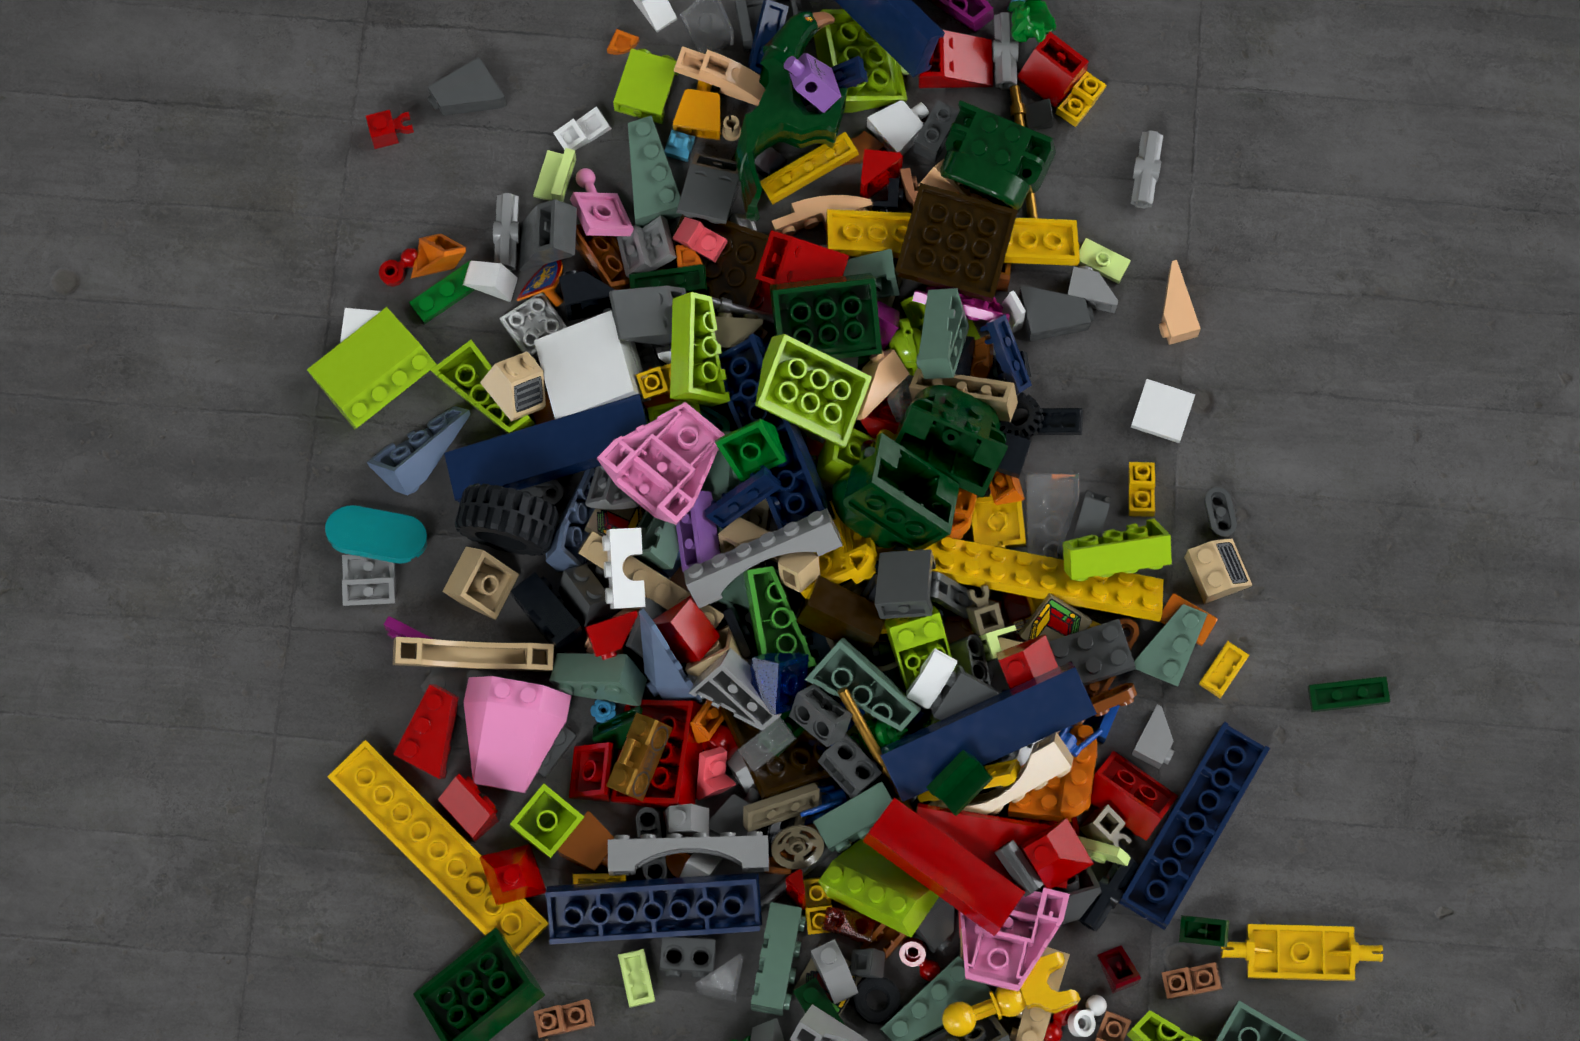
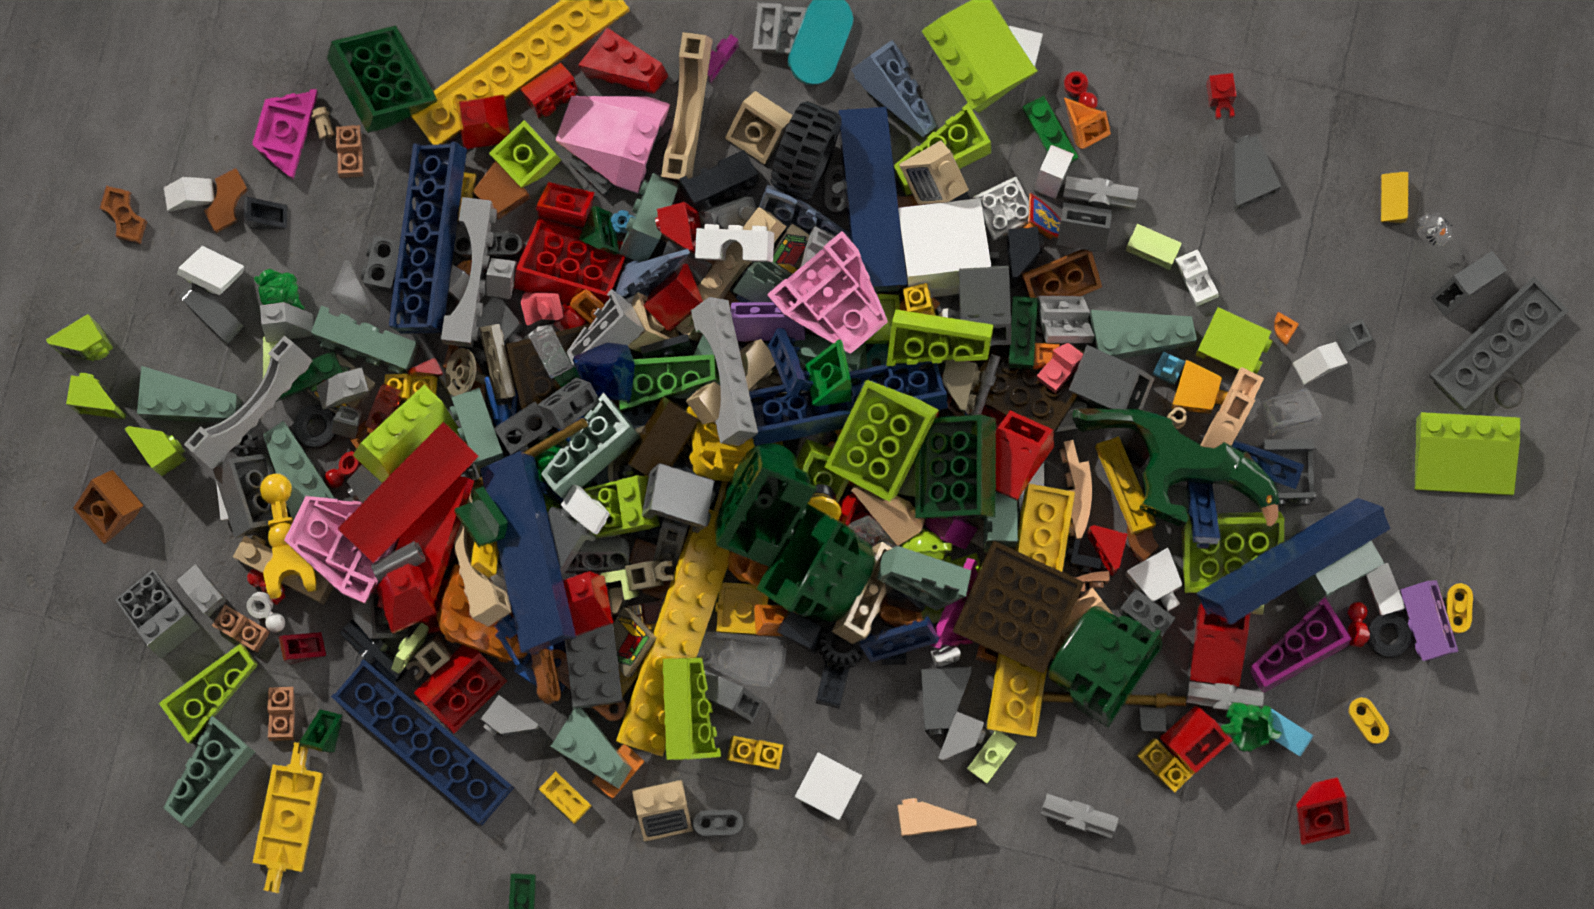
camera: 105 degrees right, 5 degrees up
(612, 217) = (1117, 277): bright pink plate -> none
(636, 978) = (373, 218): yellowish green plate -> none
(639, 756) = (566, 242): pearl gold piece -> none
(813, 80) = (1197, 489): medium lavender torso -> none

